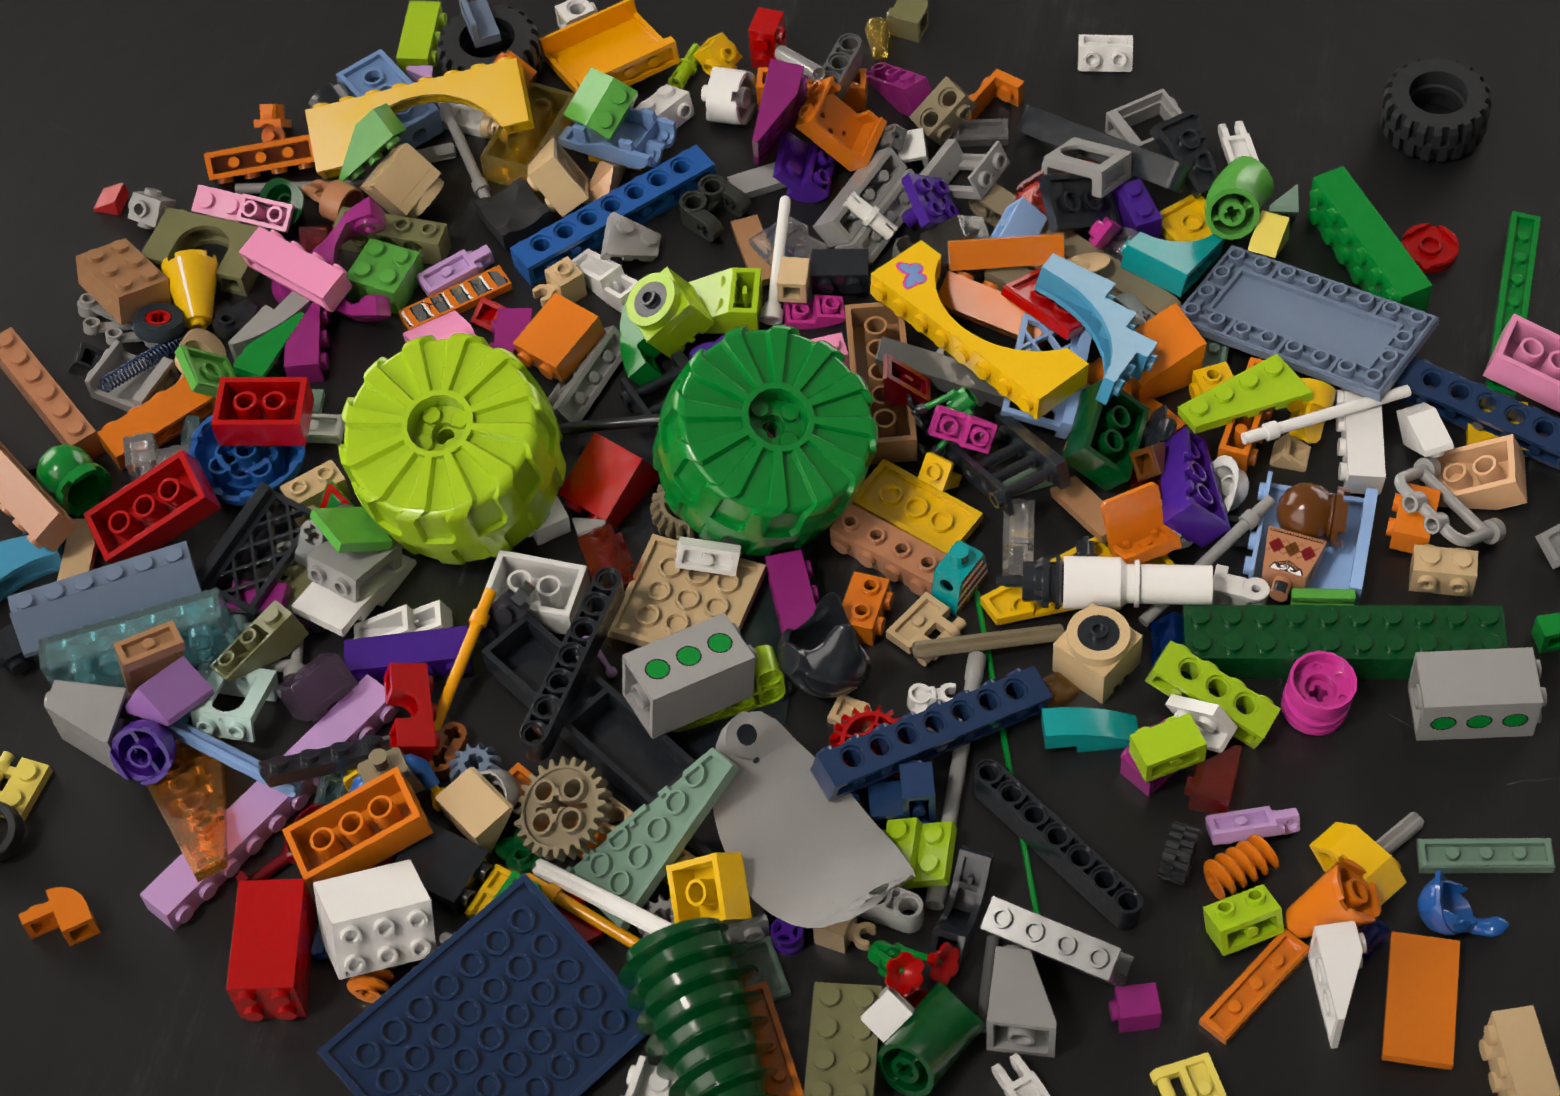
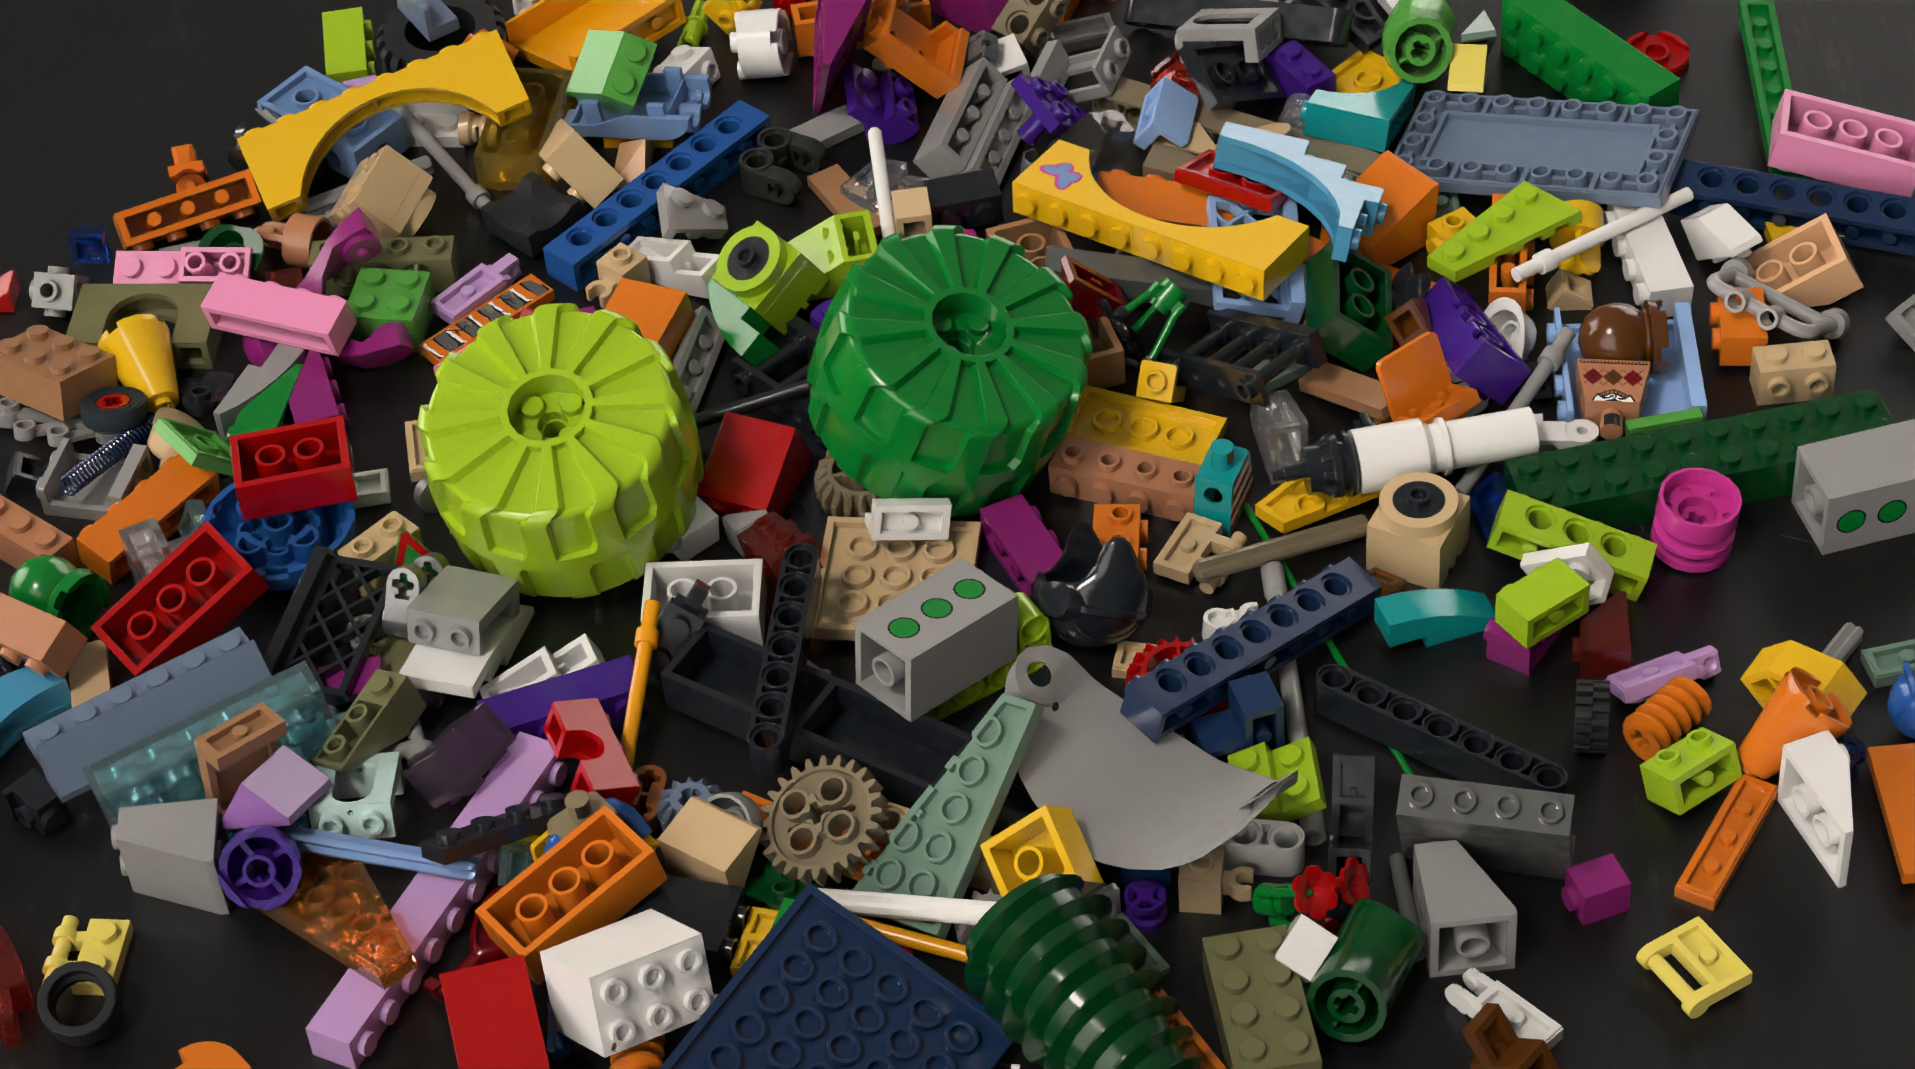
camera: 15 degrees left, 10 degrees down
(186, 170) = (89, 245): none -> clear blue tile
(350, 529) = (454, 569): bright green tile -> none
(369, 139) = (331, 154): bright green slope -> none
(870, 215) = (983, 132): white pin -> none
(962, 428) = (1177, 326): dark pink slope -> none
(1004, 251) = (1160, 138): orange tile -> none
(1103, 233) = (1272, 99): dark pink slope -> none

